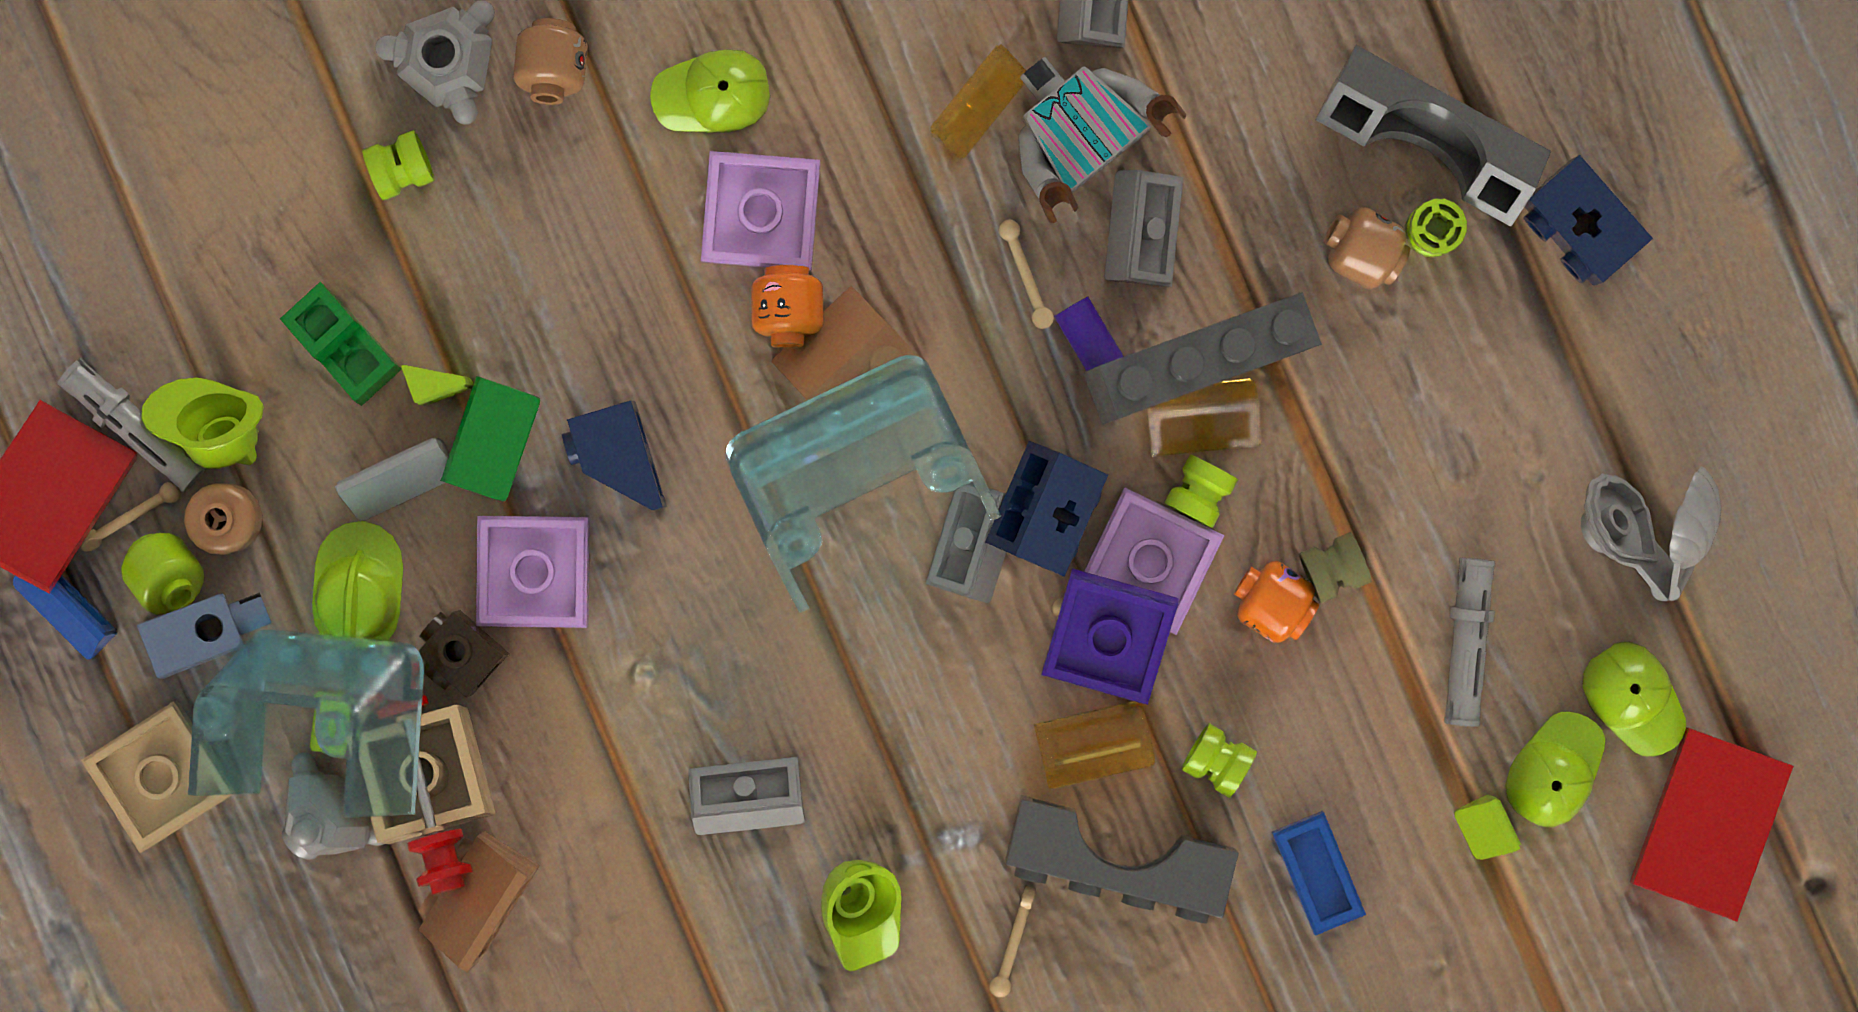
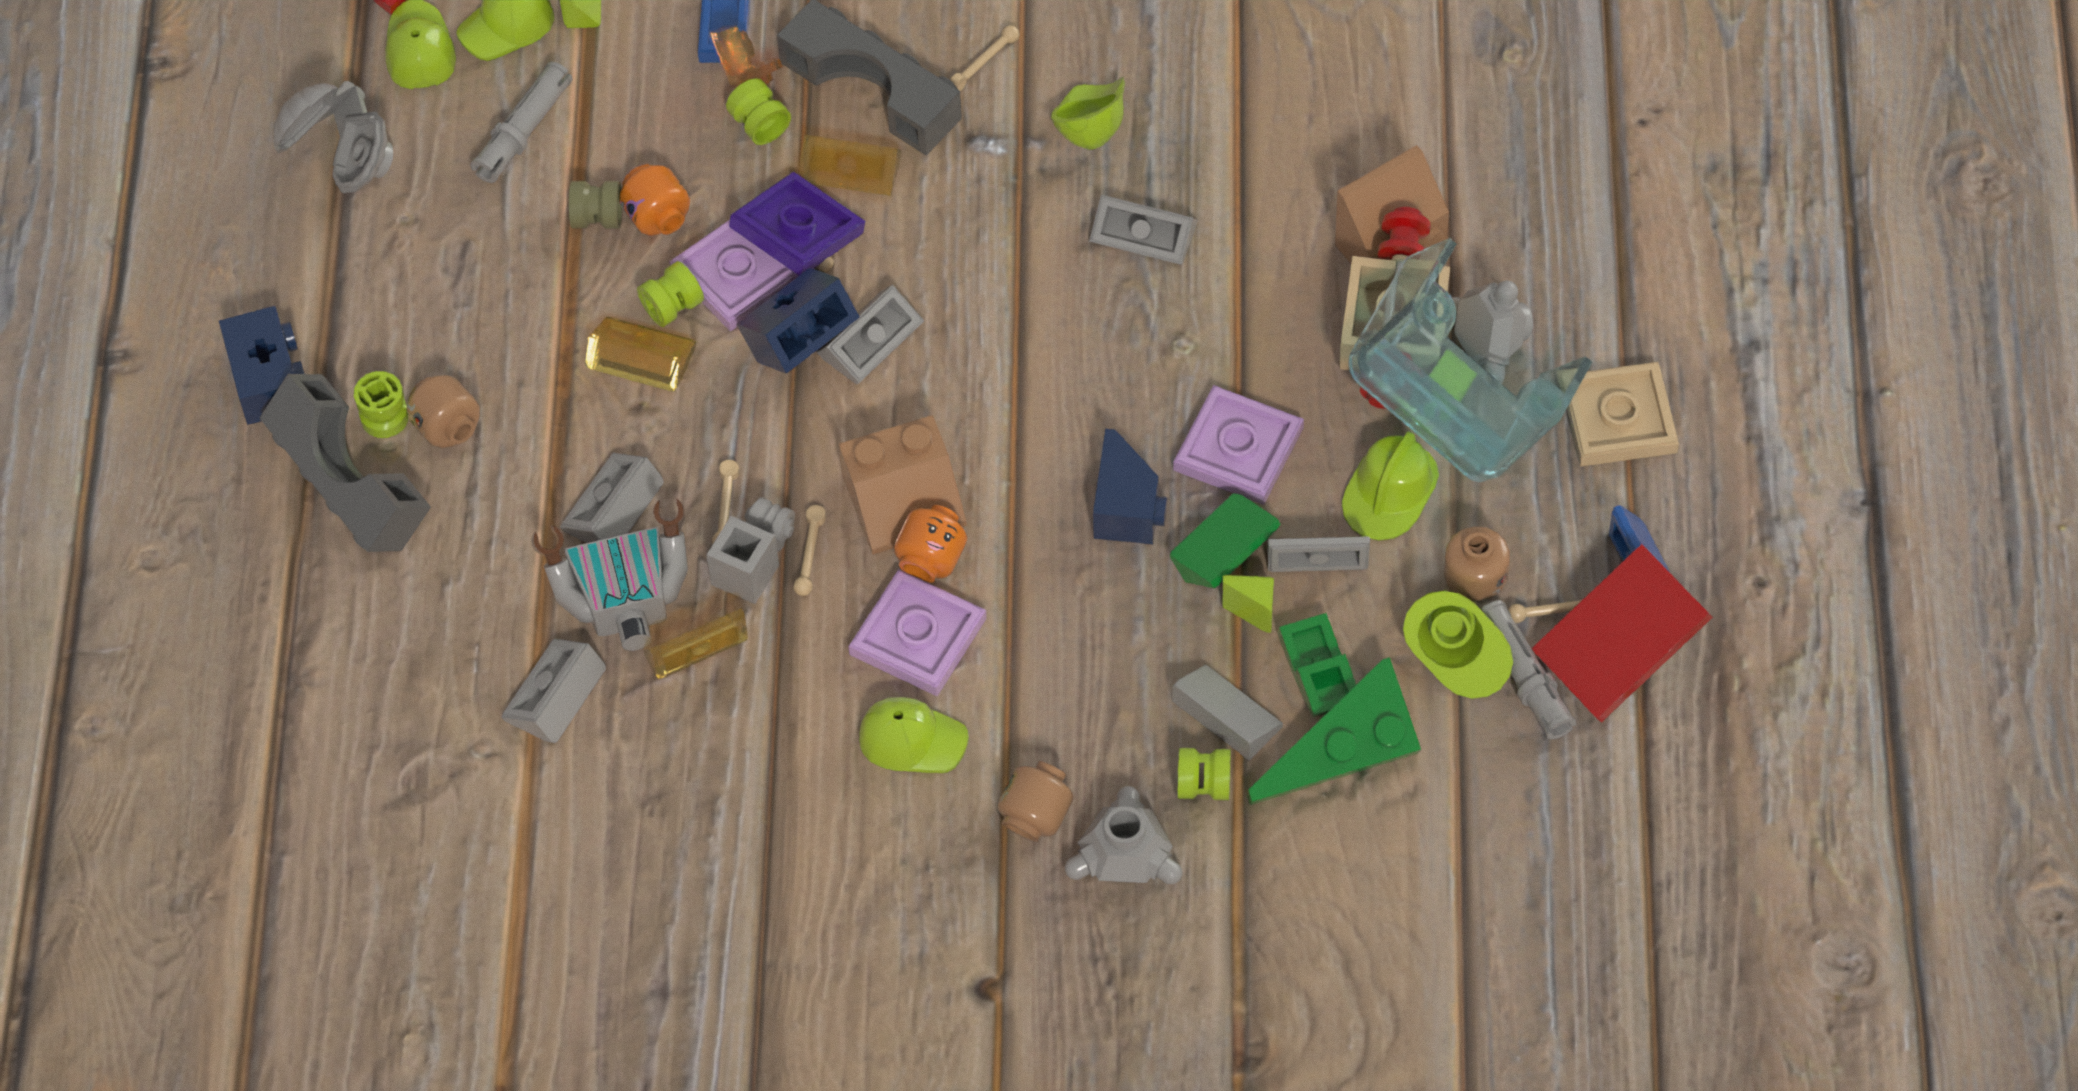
camera: 150 degrees left, 30 degrees down
(162, 573) = (1546, 541): lime head -> none
(175, 640) = (1536, 485): sand blue torso -> none
(269, 274) = (1357, 734): none -> green wing
(411, 254) = (1225, 711): none -> light grey slope
(459, 653) = (1324, 399): dark brown brick -> none
(843, 449) = (934, 383): clear light blue windscreen -> none
(928, 301) = (815, 517): none -> tan hinge
(964, 209) = (746, 552): none -> light grey brick
(1088, 334) = (698, 427): dark purple cylinder -> none
(1202, 358) = (668, 363): dark grey arch -> none
(1258, 810) = (736, 53): none -> clear orange bracket

